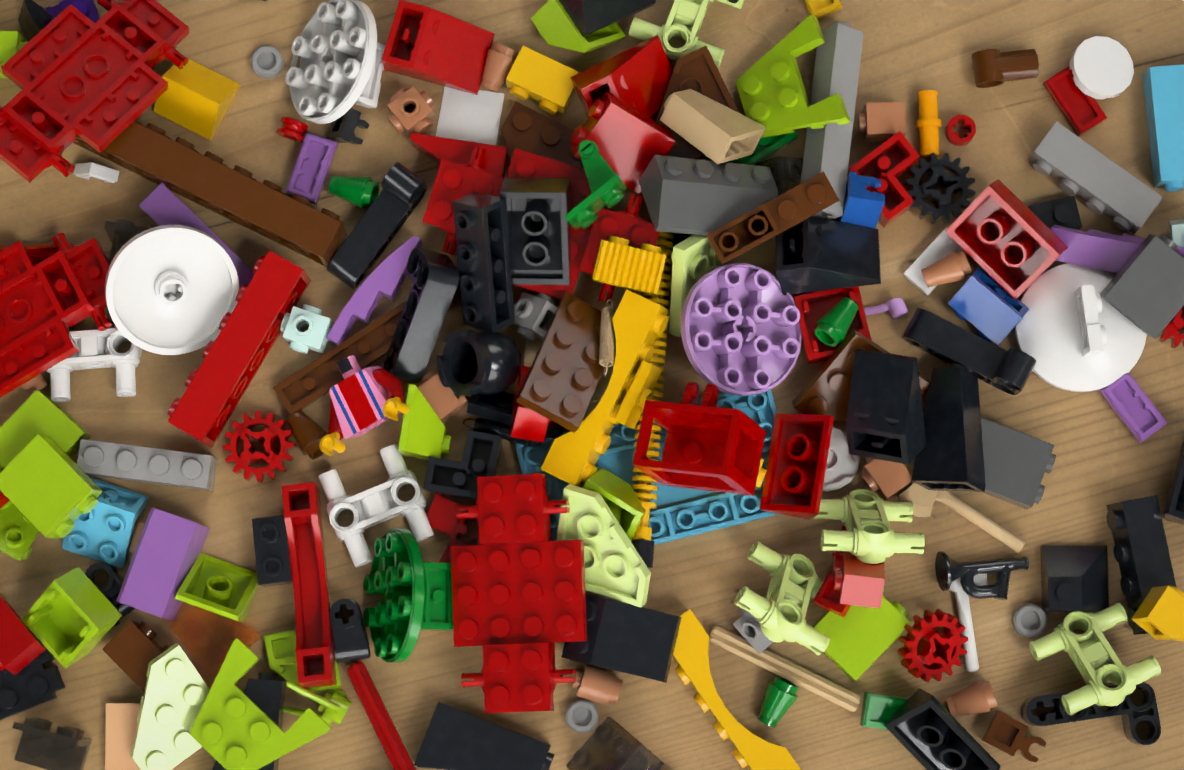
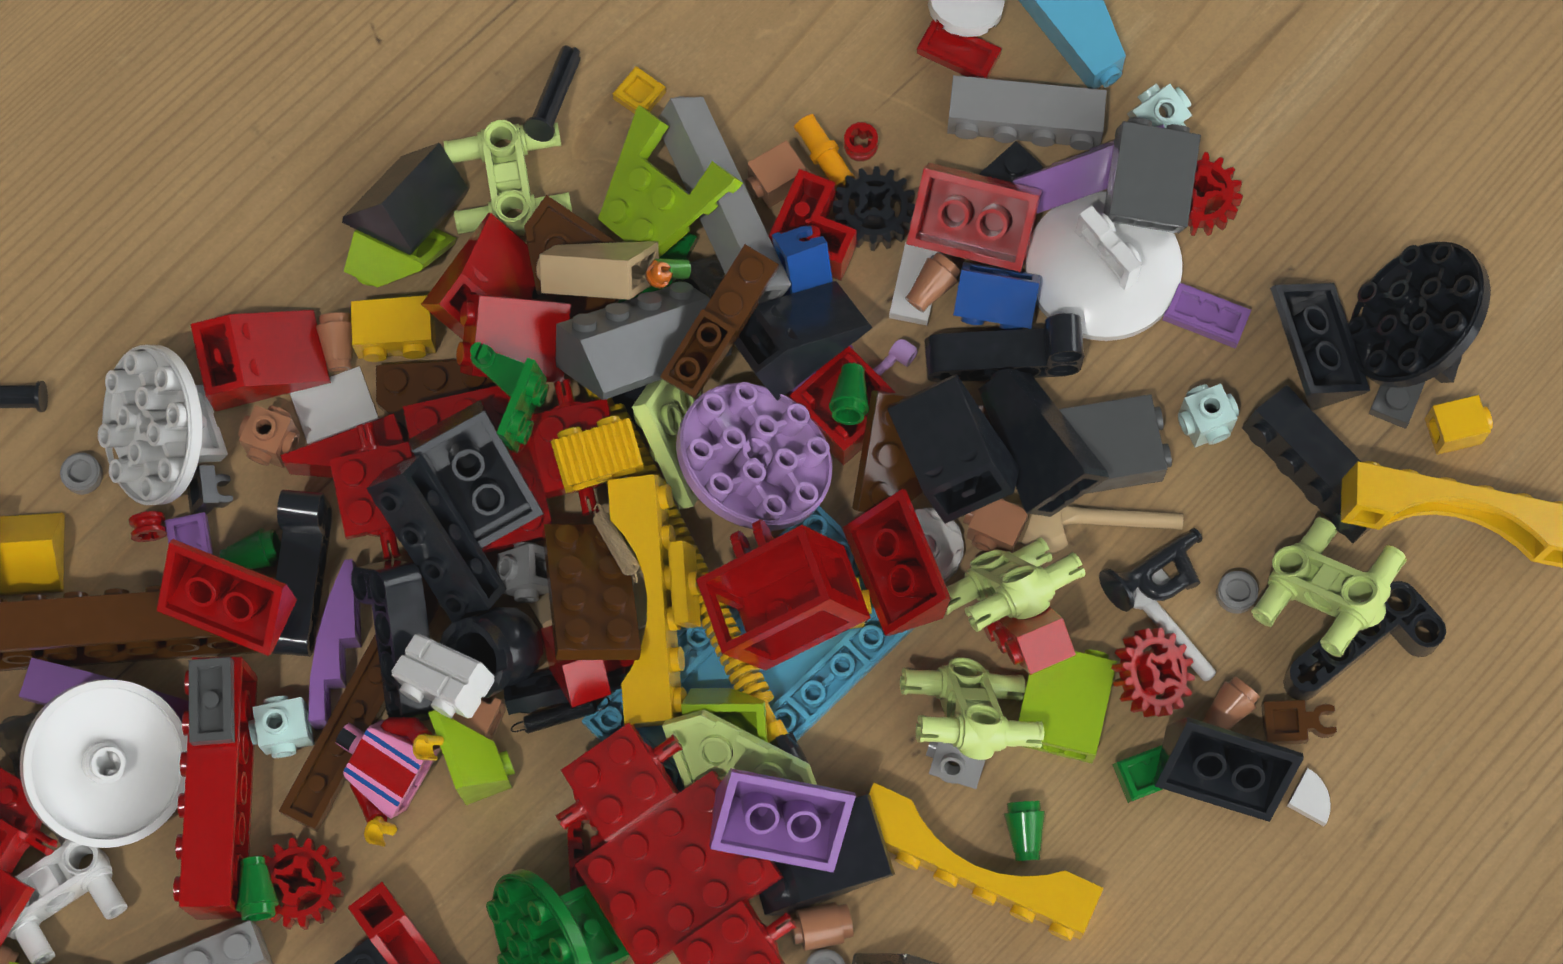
camera: 30 degrees left, 10 degrees down
(226, 437) = (255, 890): none -> green cone
(265, 291) = (211, 701): none -> dark grey plate
(307, 434) = (345, 840): reddish brown cone -> none
(312, 223) = (224, 598): none -> red slope
(376, 505) = (464, 873): white piece -> none
(433, 364) = (442, 676): none -> white brick
(443, 514) = (546, 842): red tile -> none
(460, 478) = (542, 788): black brick -> none
(605, 604) = (780, 819): none -> medium lavender slope
(756, 152) = (663, 270): none -> arm
(785, 669) = (1013, 791): tan axle -> none
(829, 598) = (1017, 682): red tile -> none
(996, 67) = (859, 60): reddish brown piece -> none
(1074, 578) = (1255, 522): black slope -> none
(1077, 488) = (1206, 426): none -> light aqua brick

